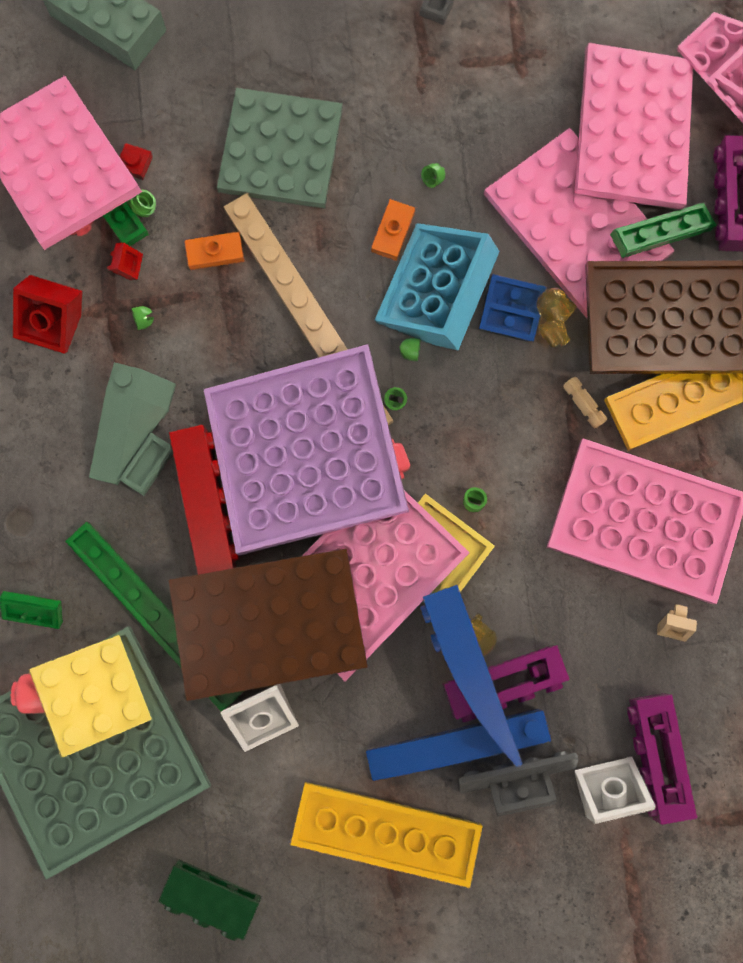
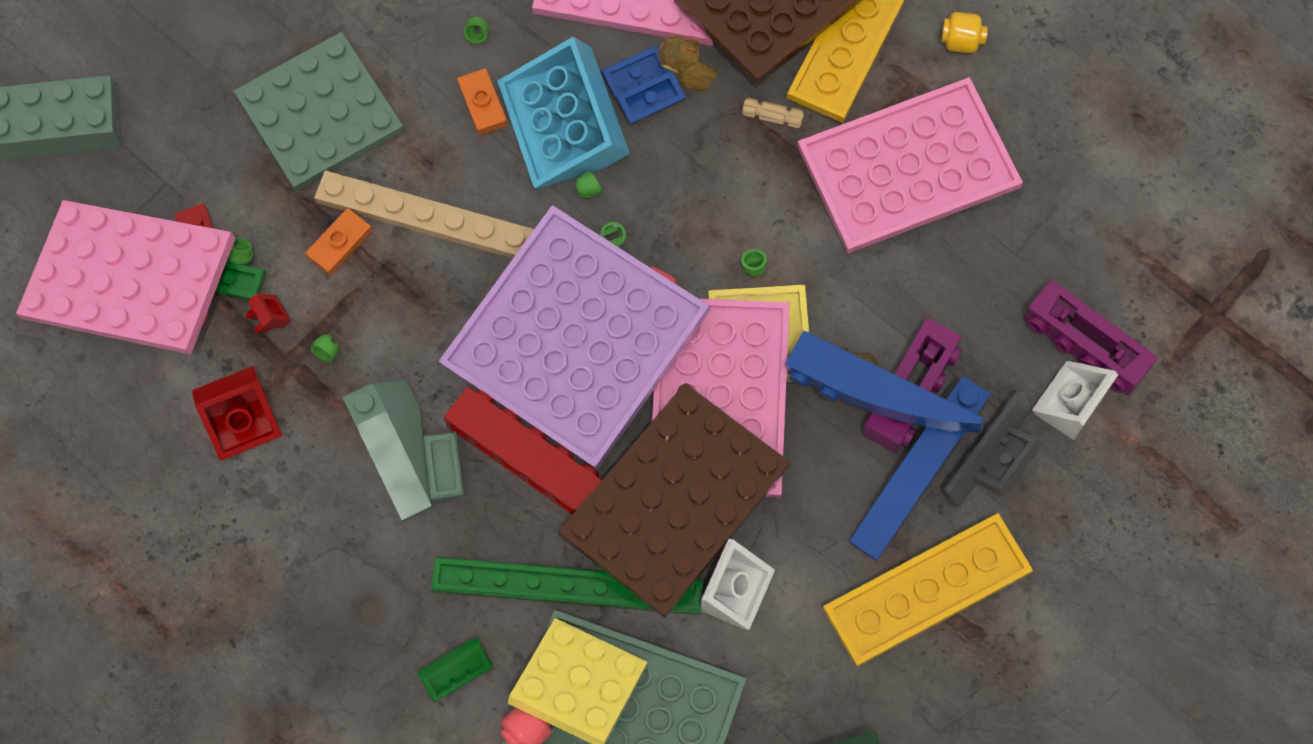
camera: 40 degrees left, 10 degrees down
(677, 625) = (1007, 225): tan tile -> none

